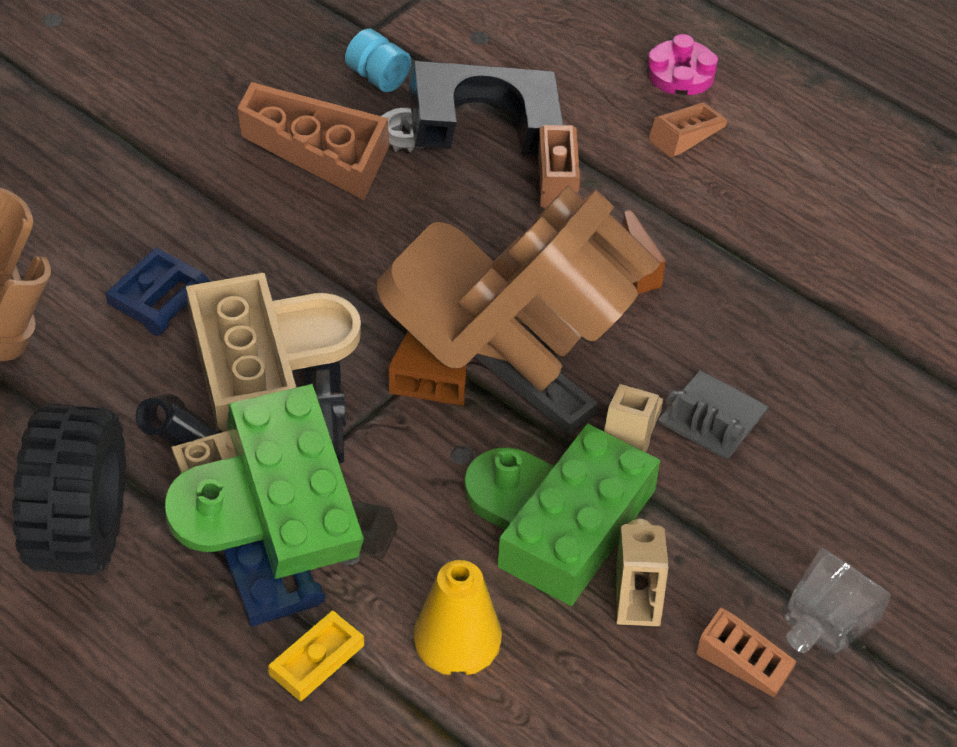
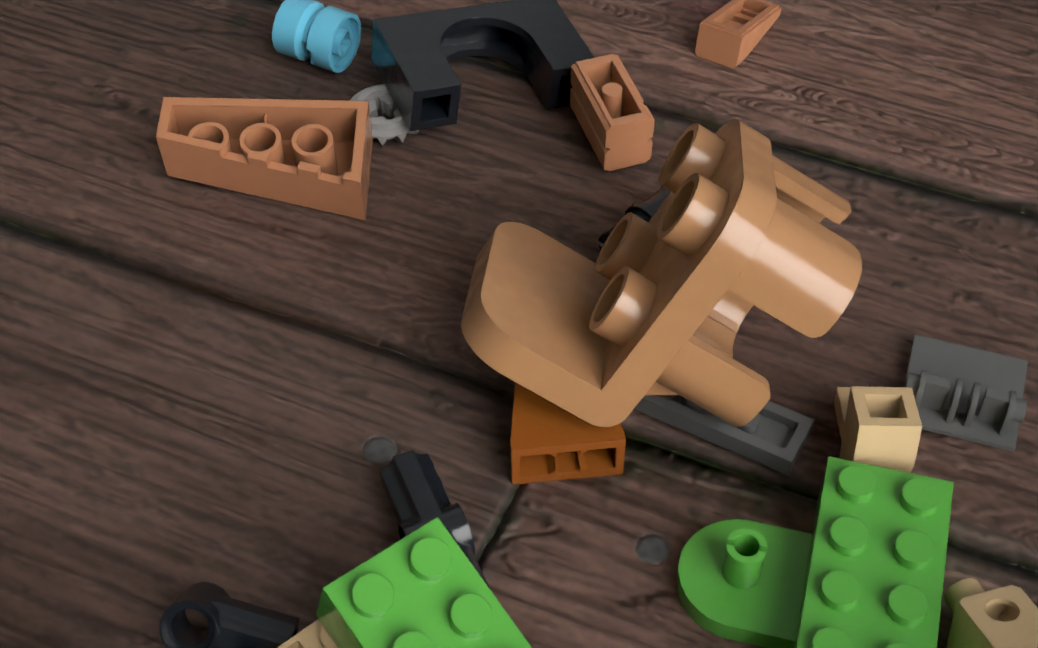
camera: 15 degrees left, 0 degrees up
(148, 284) = (108, 415): dark blue plate -> none
(255, 342) = (306, 471): tan brick -> none

